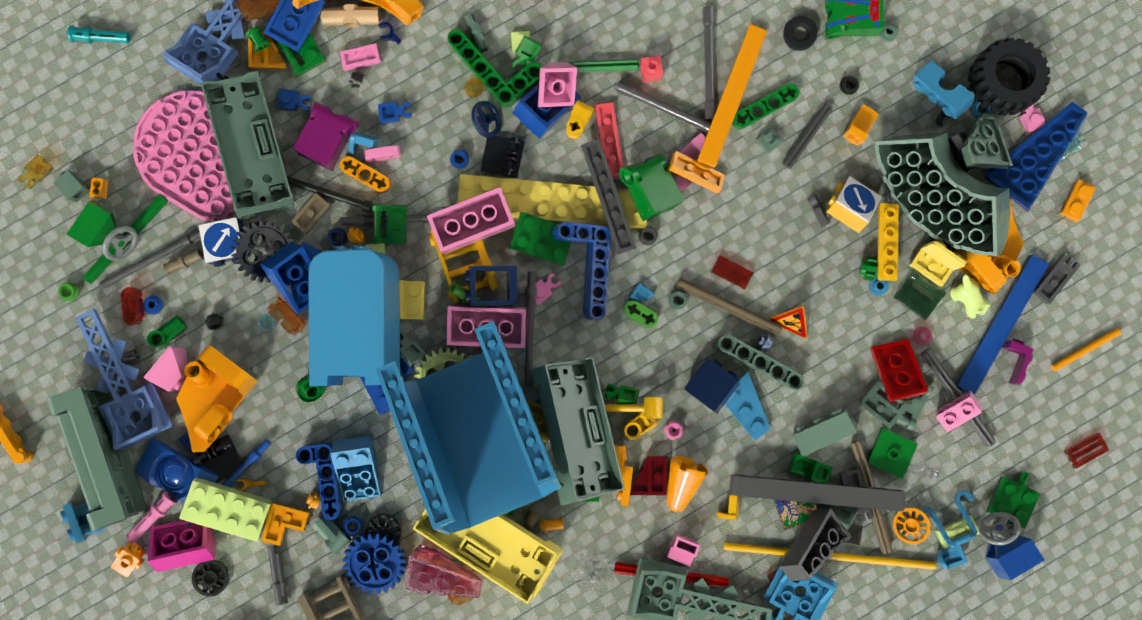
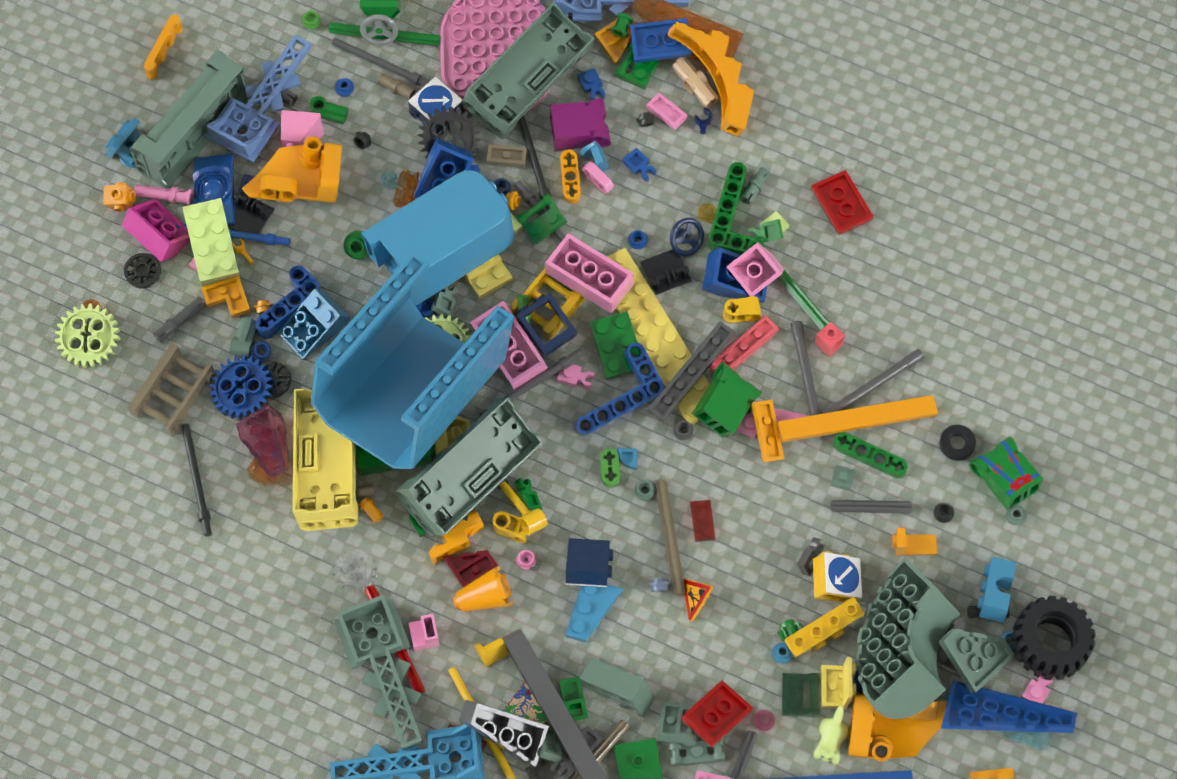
camera: 60 degrees right, 20 degrees down
(132, 306) = (332, 72): clear red plate -> none
(769, 363) = (638, 601): sand green beam -> none

